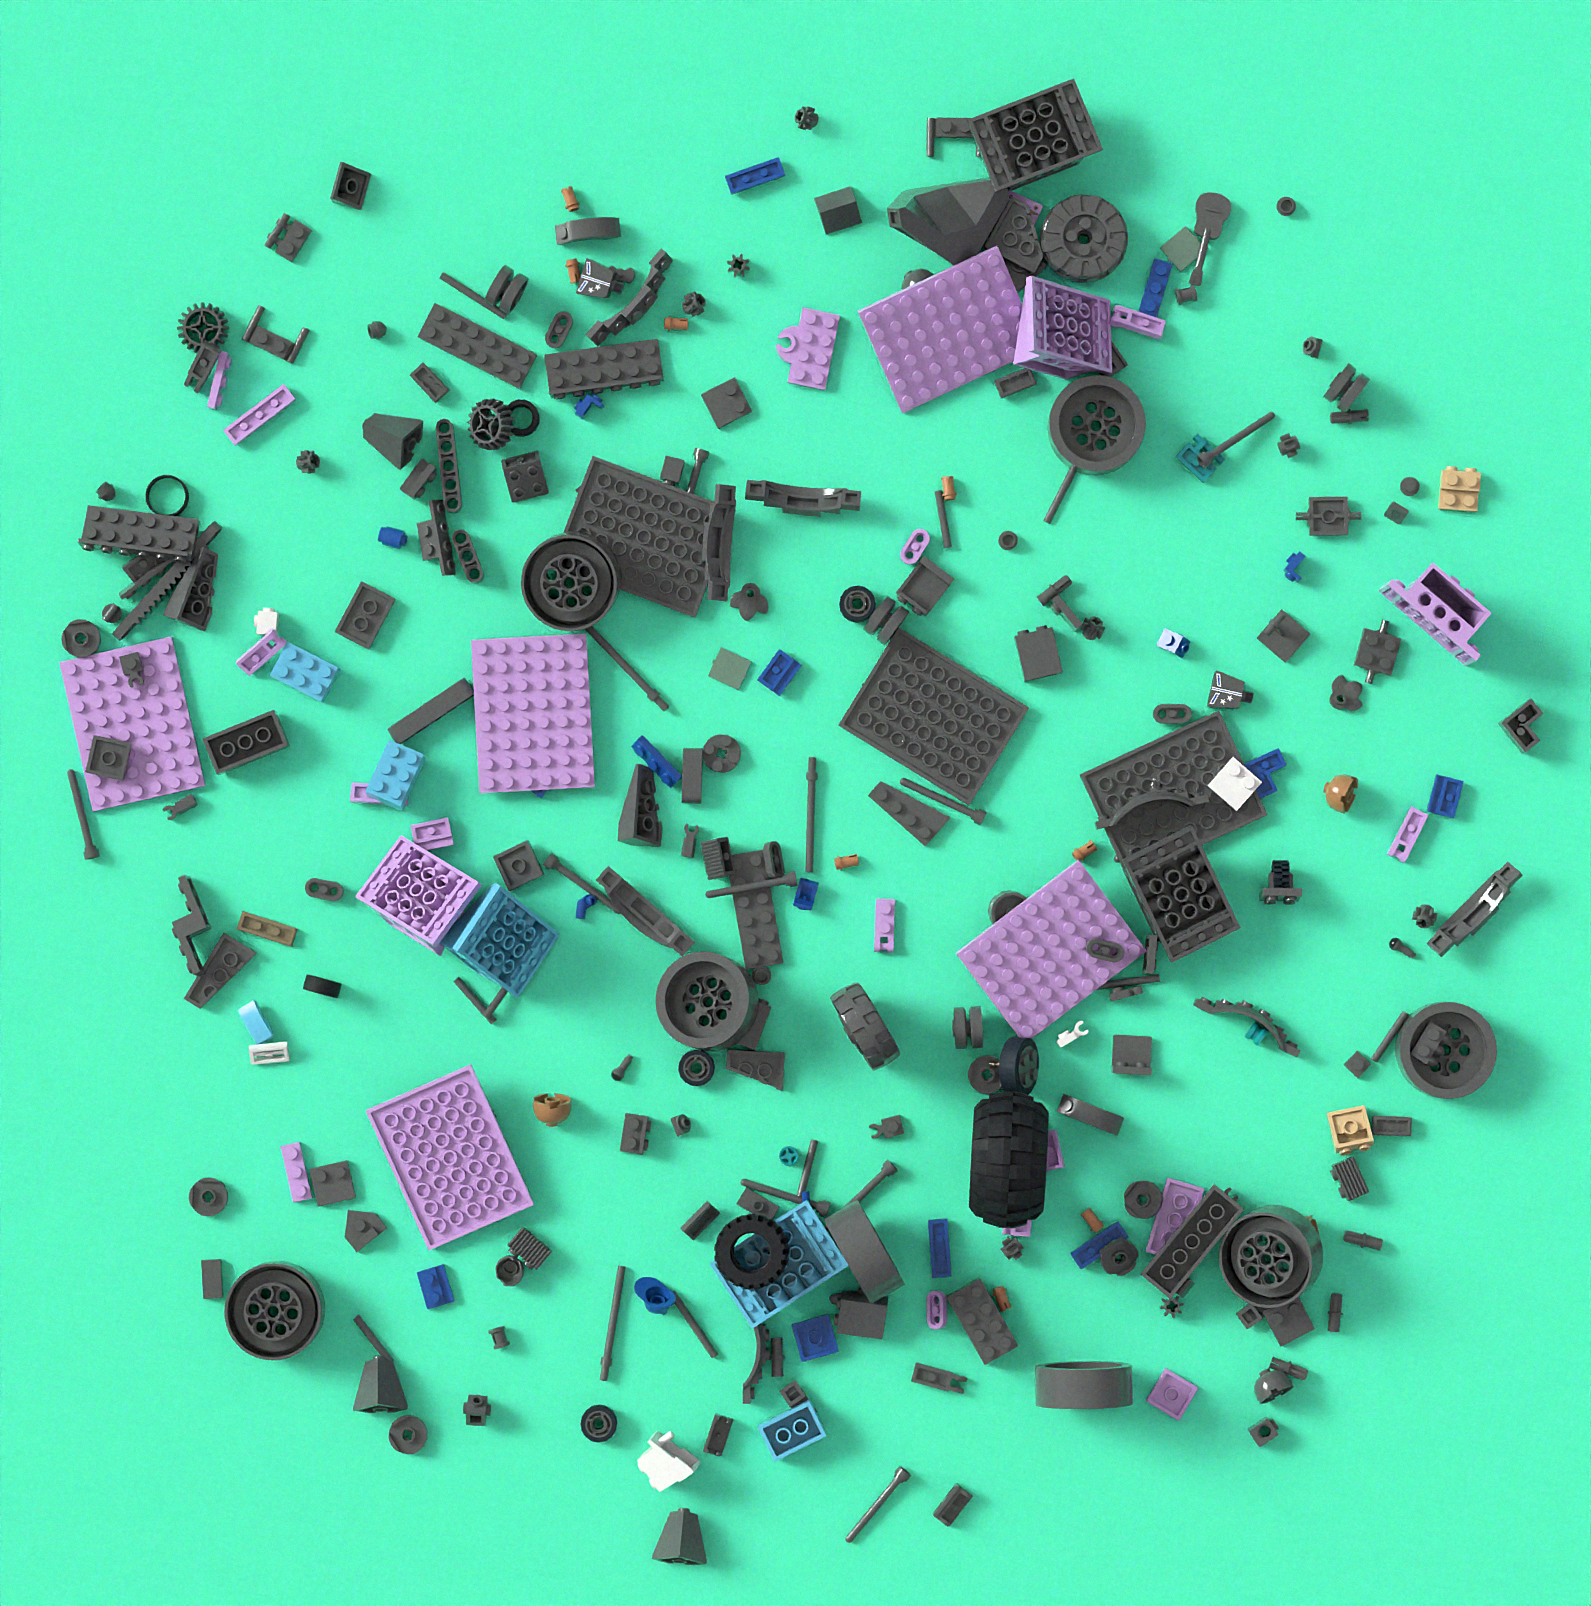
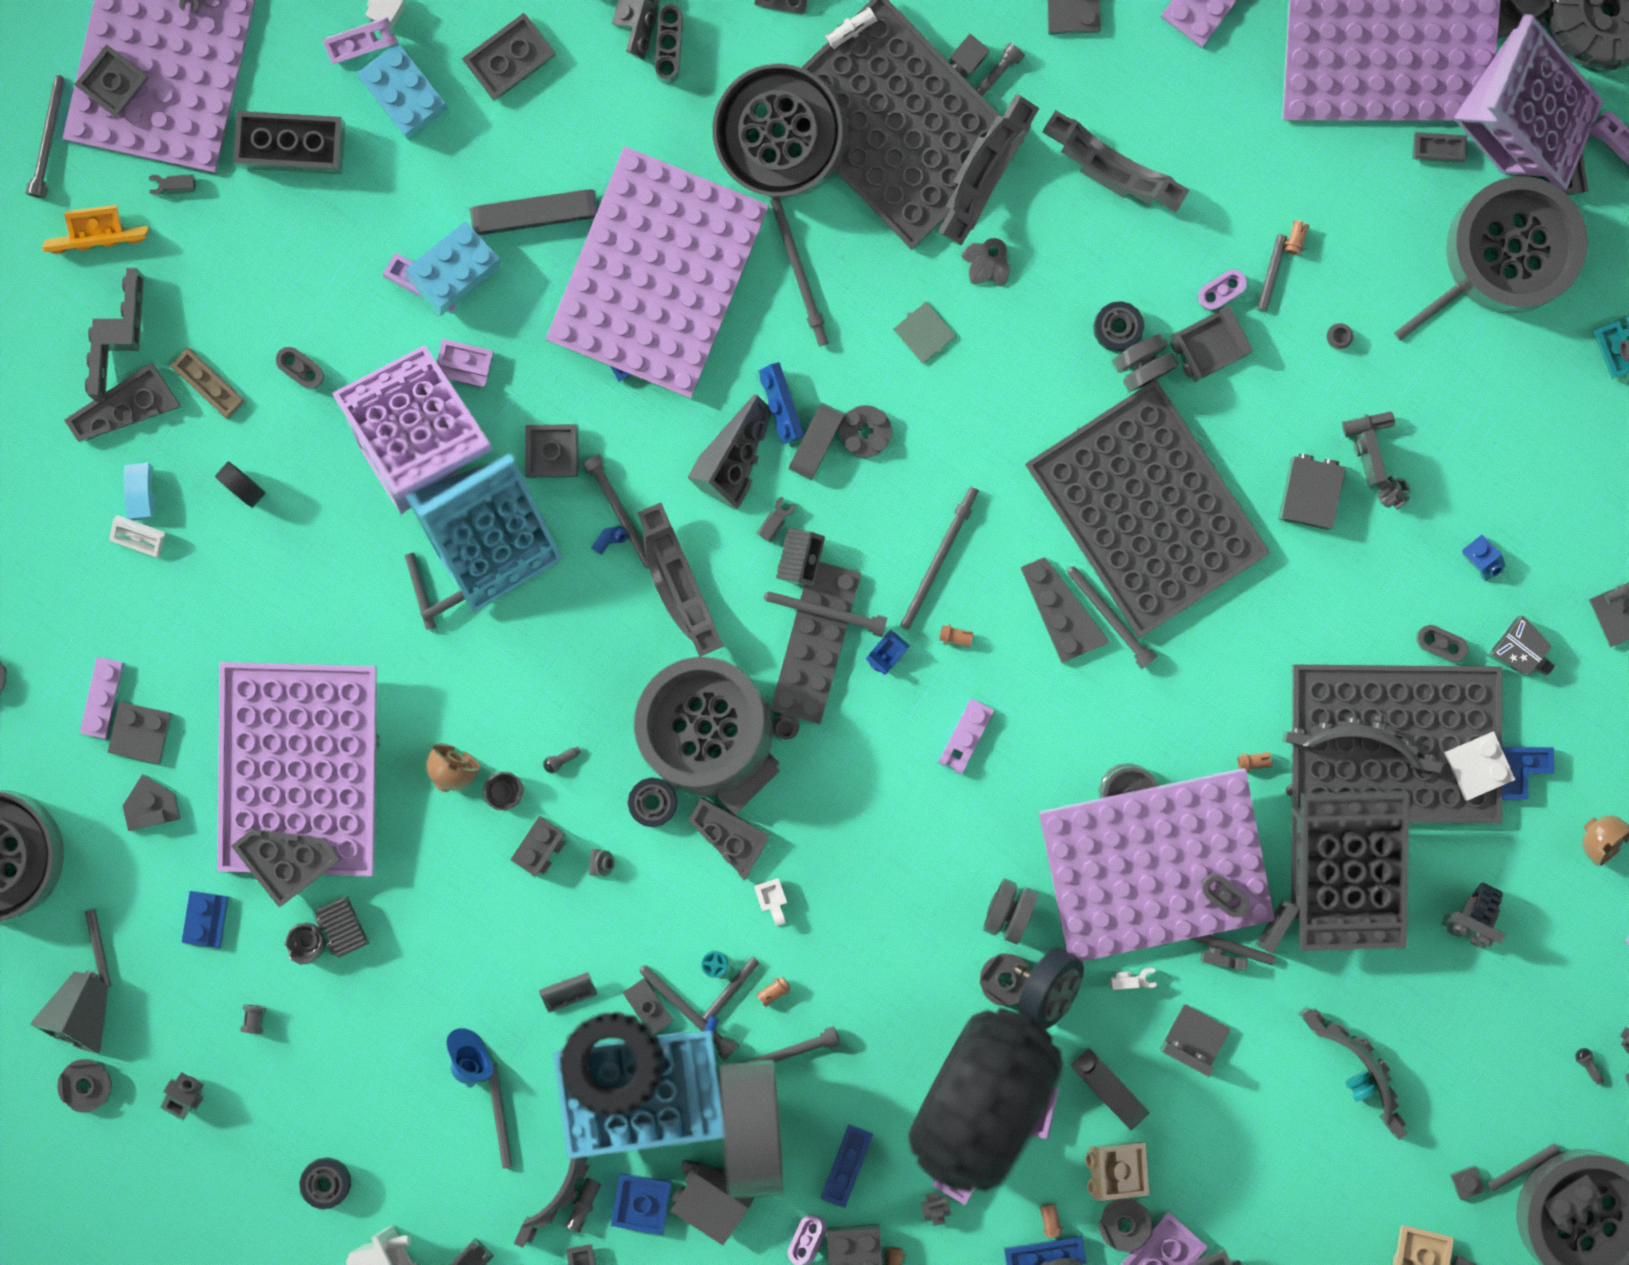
camera: 15 degrees right, 0 degrees up
(142, 861) = (92, 228): none -> light orange bracket
(471, 1222) = (285, 861): none -> dark grey plate
(585, 489) = (851, 28): none -> white pin
(593, 1107) = (503, 790): none -> dark grey hair
(606, 1360) = (371, 1109): dark grey bar -> none
(773, 859) = (867, 591): dark grey plate -> none
(779, 672) = (983, 365): blue plate -> none
(805, 1093) = (771, 897): none -> white plate
(836, 1155) = (774, 991): none -> nougat pin
(865, 1026) = (884, 849): dark grey wheel -> none
(890, 1127) = (856, 988): dark grey plate -> none
(1121, 1166) = (1117, 1171): none -> tan plate

